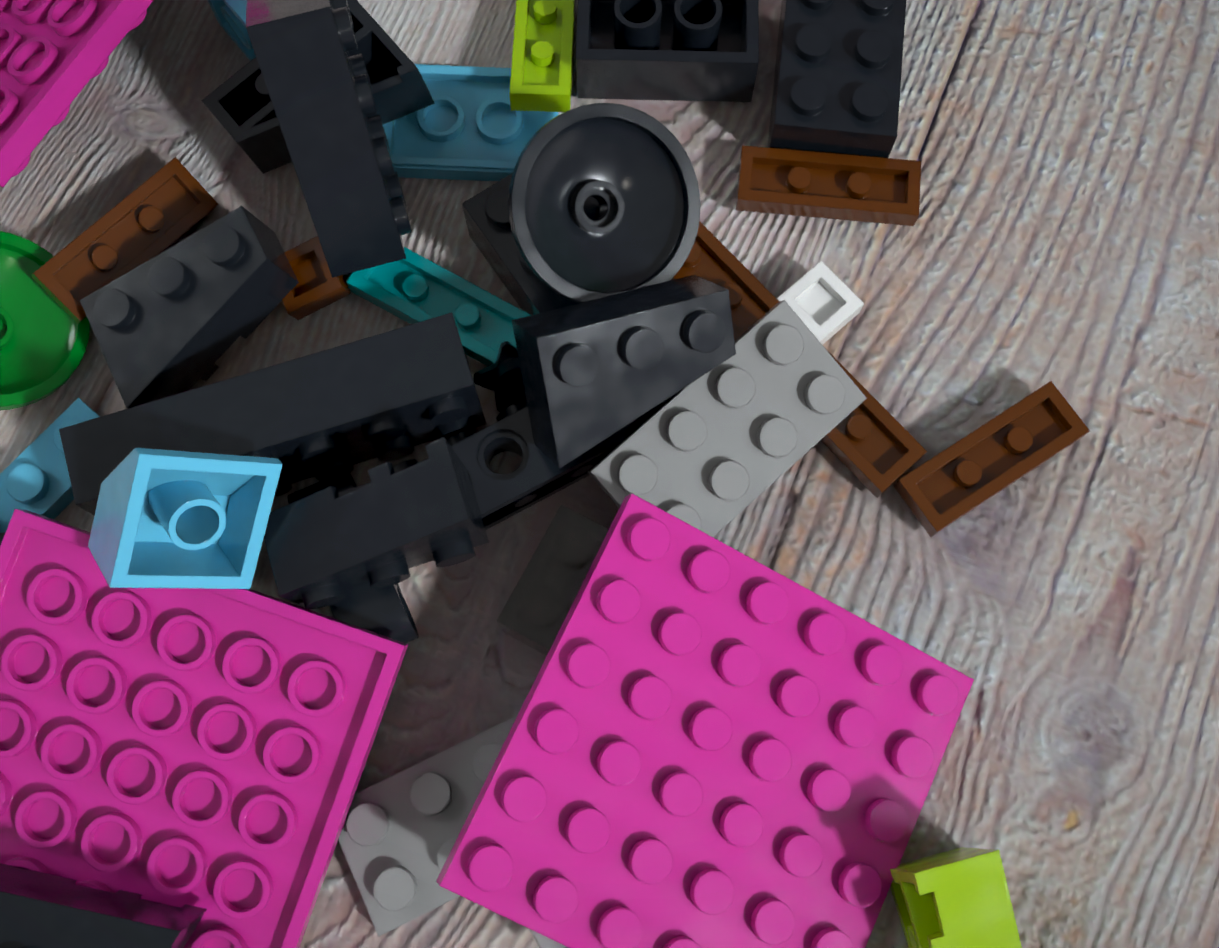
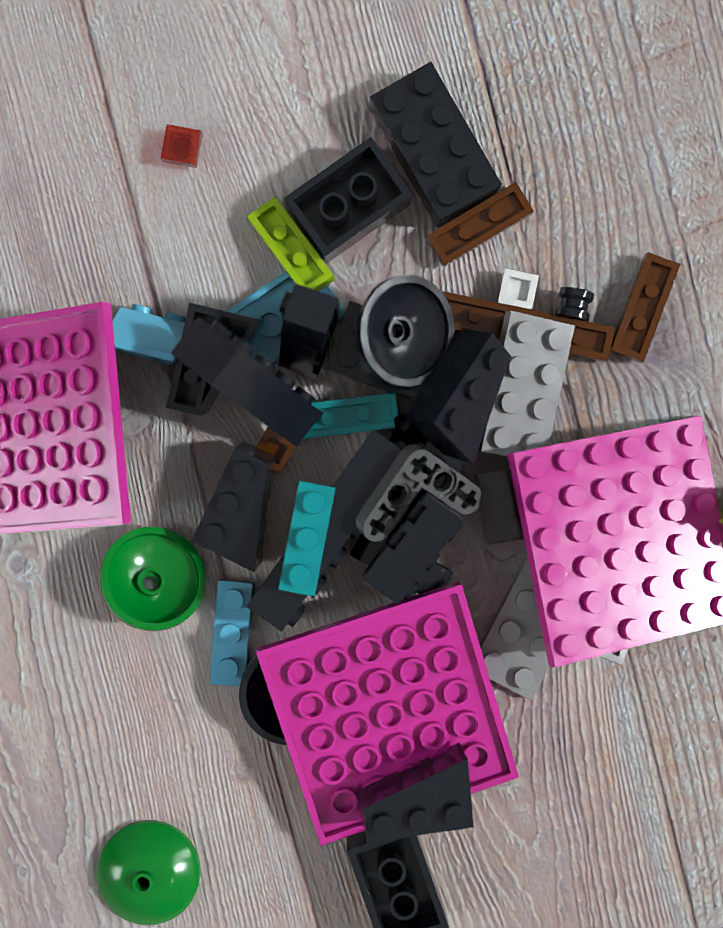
camera: 40 degrees left, 15 degrees up
(126, 236) = (178, 494): reddish brown plate -> none
(183, 519) = (339, 609): medium azure slope -> none
(230, 385) = (307, 538): none -> teal plate
(437, 400) = (411, 480): none -> dark grey beam
(472, 115) = (306, 329): none -> black wedge
(892, 376) = (574, 303): none -> black wheel

